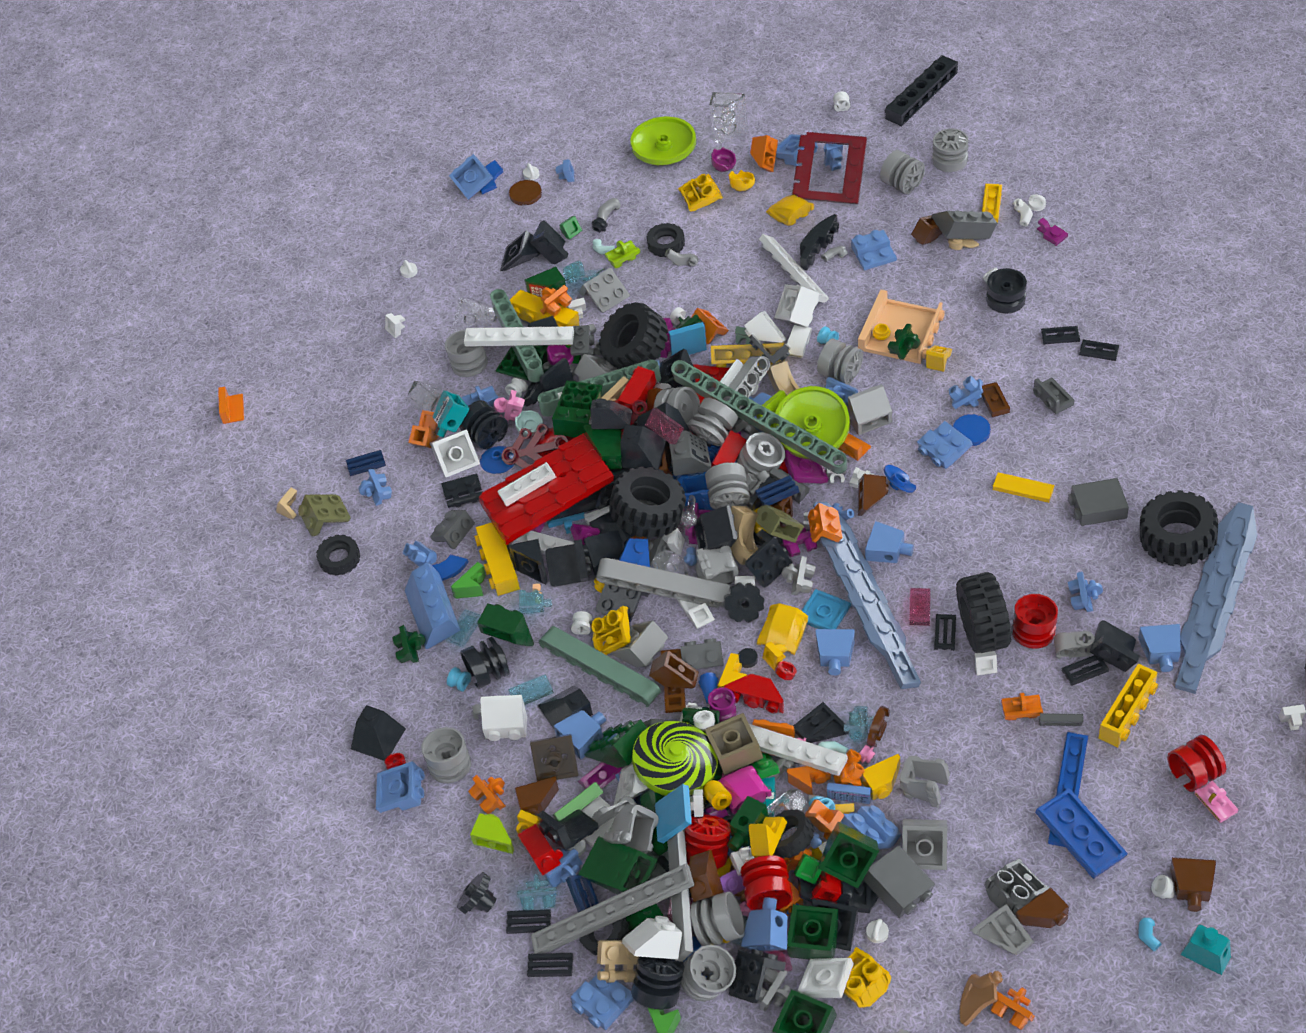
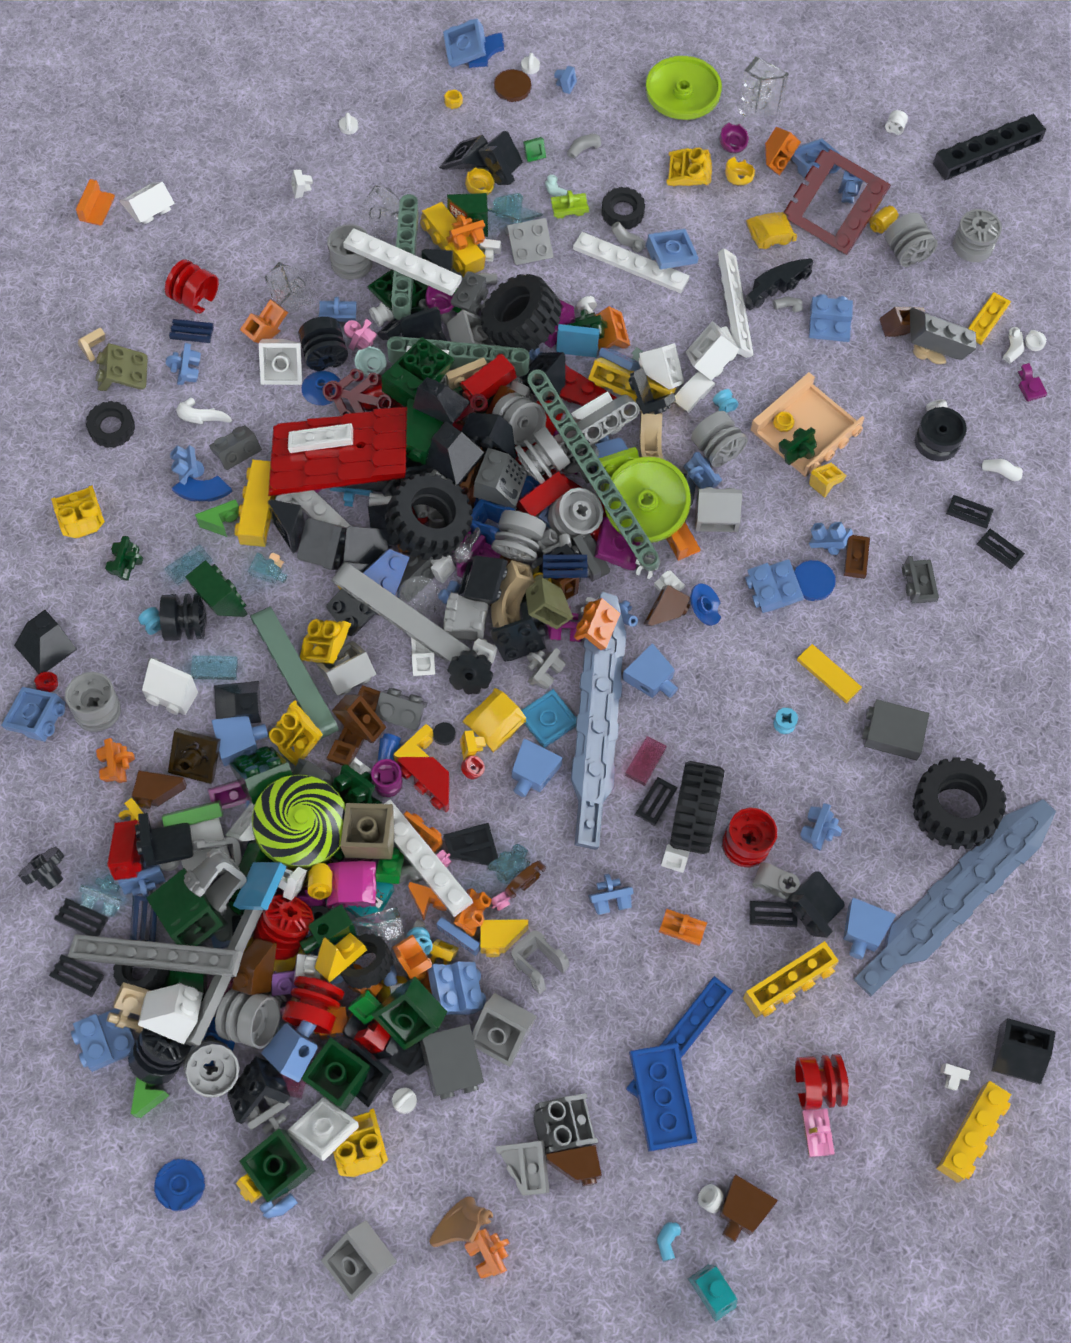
camera: 15 degrees right, 15 degrees up
(275, 386) = (148, 202): none -> white slope
(348, 427) = (190, 284): none -> red wheel
(350, 628) = (78, 513): none -> yellow slope
(399, 520) = (198, 416): none -> white piece
(430, 605) = (168, 526): medium blue slope -> none
(449, 413) = (292, 316): teal torso -> none
(460, 487) = (267, 402): black plate -> none
(483, 219) = (453, 99): none -> yellow tile
(490, 833) = (94, 806): lime slope -> none
(539, 264) = (477, 179): none -> yellow hair
(581, 623) = (302, 616): white wheel -> none
(583, 531) = (357, 515): magenta bracket -> none
(599, 224) = (566, 159): black plate -> none
(627, 704) = (296, 730): none -> yellow slope
(664, 426) = (483, 441): clear pink plate -> none
(694, 274) = (630, 262): none -> white plate
(704, 719) = (352, 791): white tile -> none
(721, 250) = (671, 249): none -> medium blue plate
(728, 340) = (619, 359): none -> medium blue tile
(834, 746) = (472, 874): light aqua arm -> none
(872, 168) = (883, 219): none -> yellow brick
(945, 717) = (622, 895): none -> medium blue hips
(1014, 536) = (782, 725): none -> medium azure wheel
(1047, 719) = (714, 960): dark grey tile -> none
(1067, 294) = (1004, 468): none -> white arm

